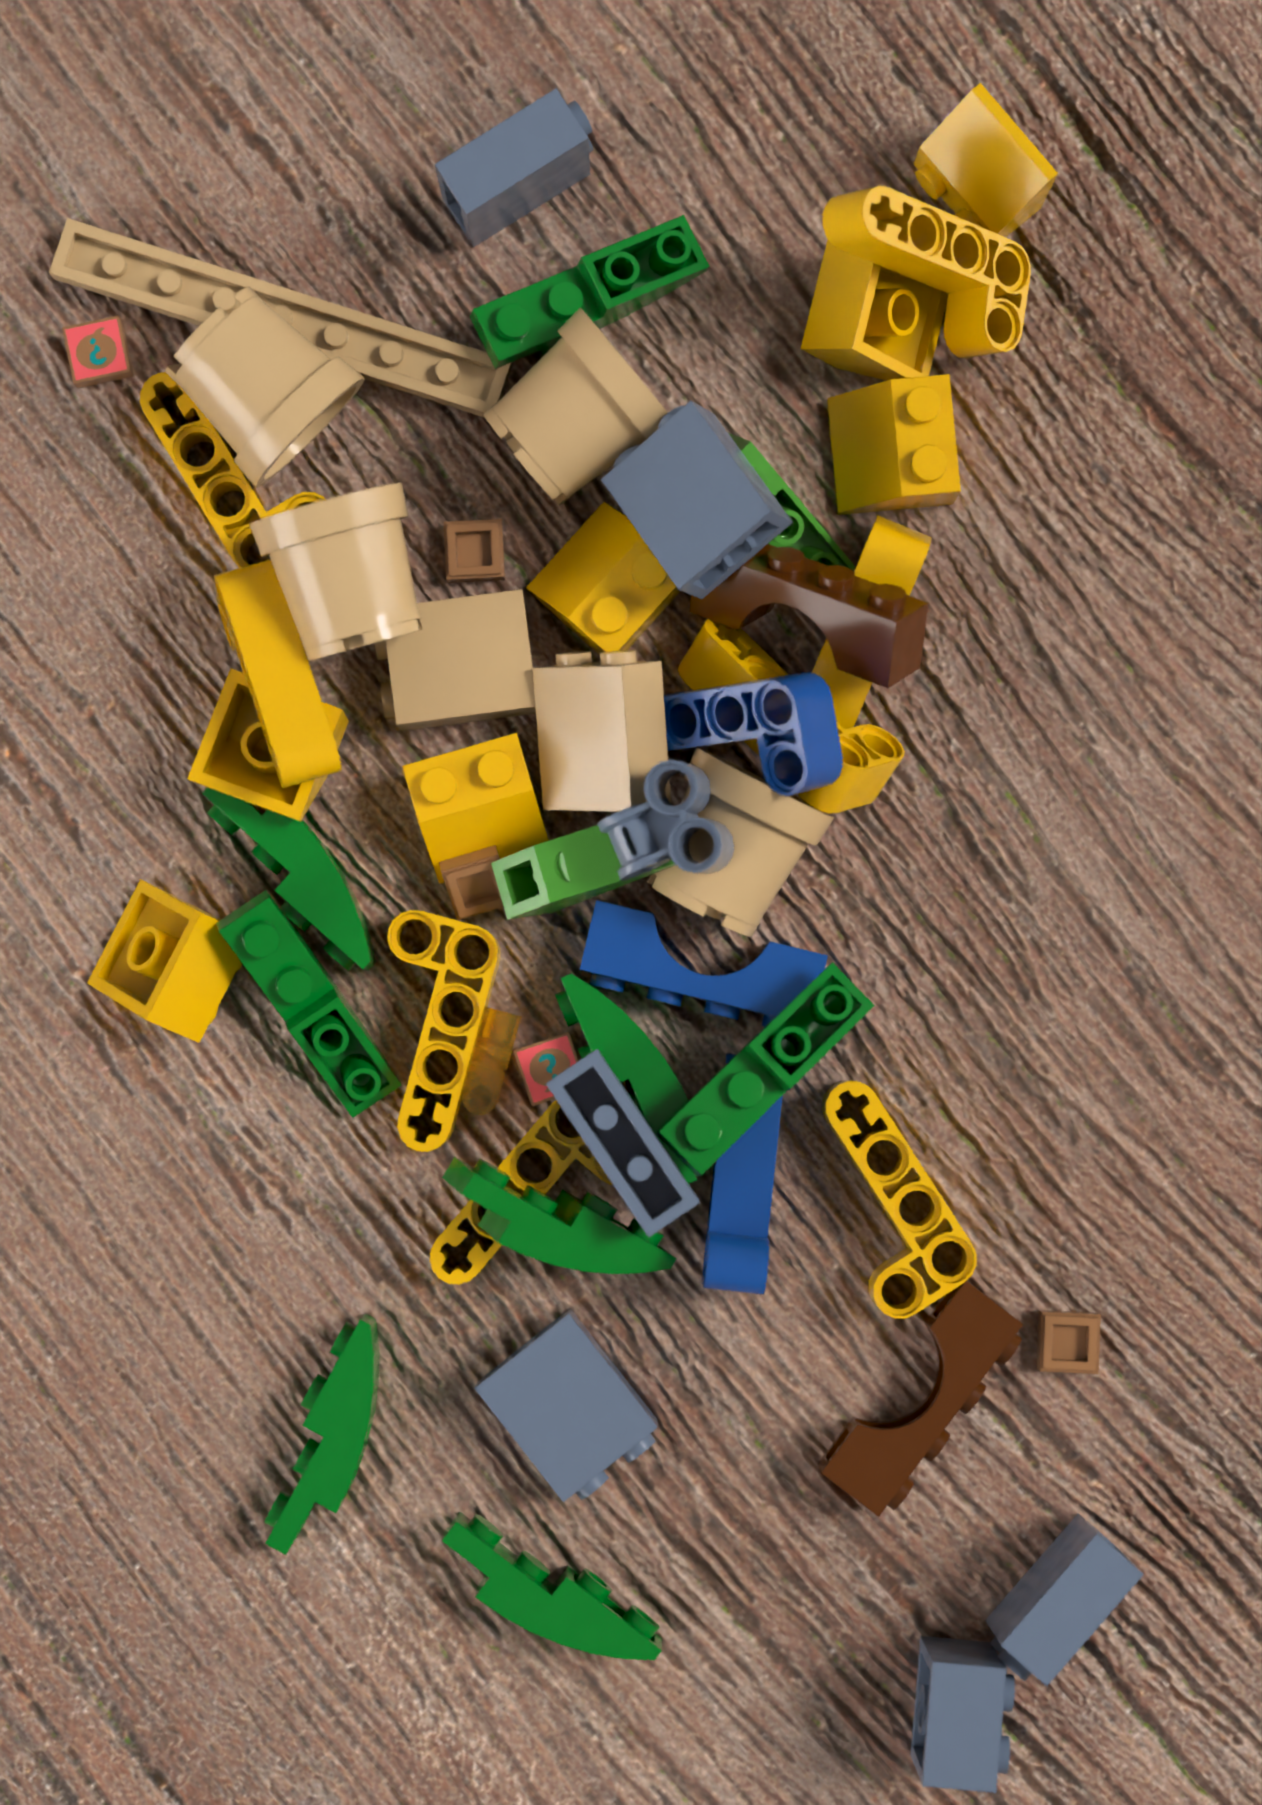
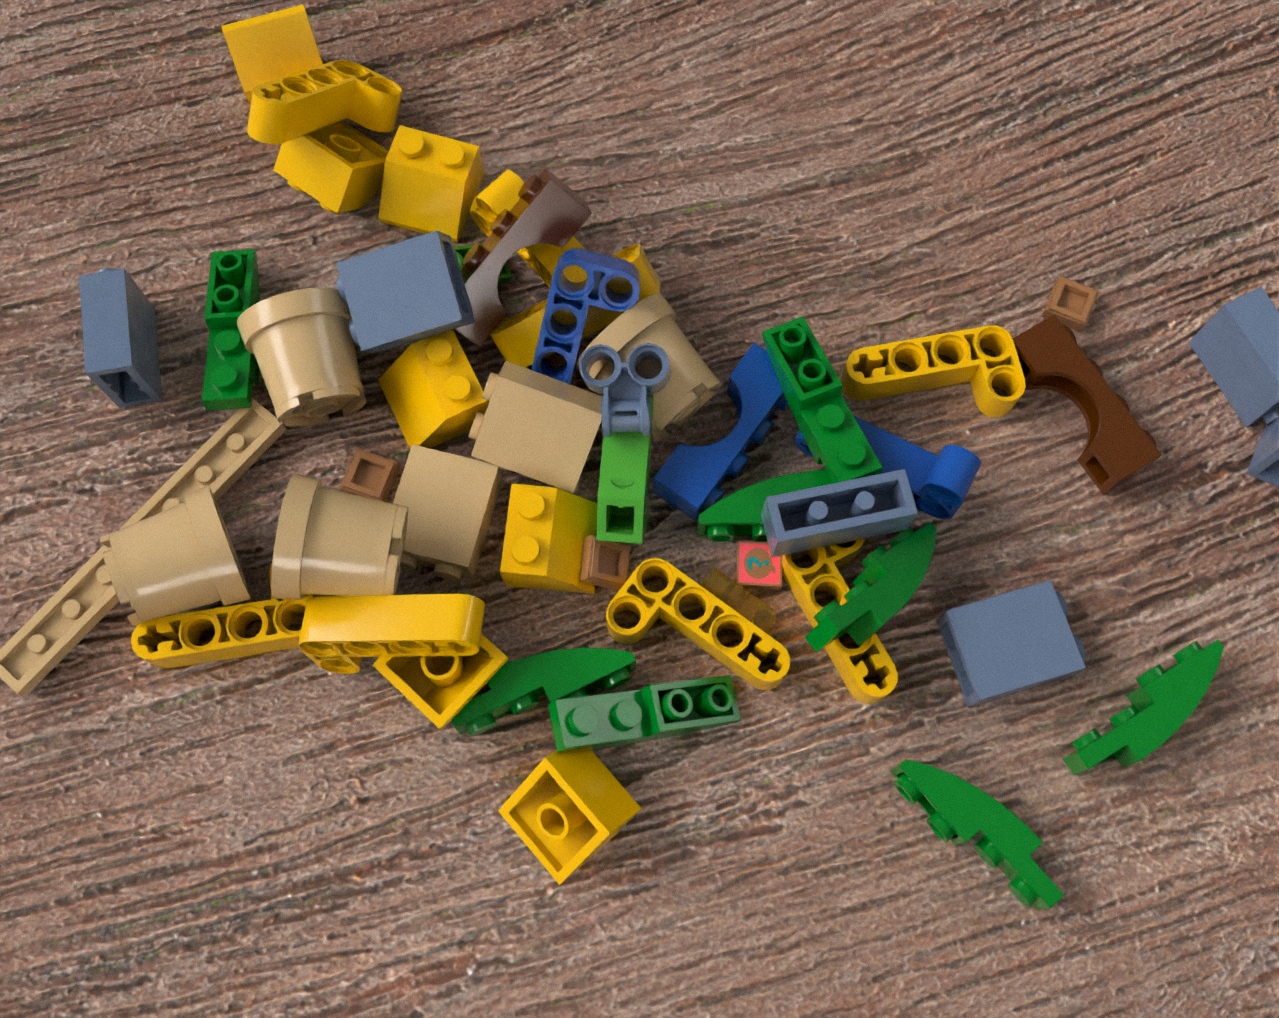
camera: 70 degrees left, 15 degrees down
(97, 351) = (95, 685): tile -> none

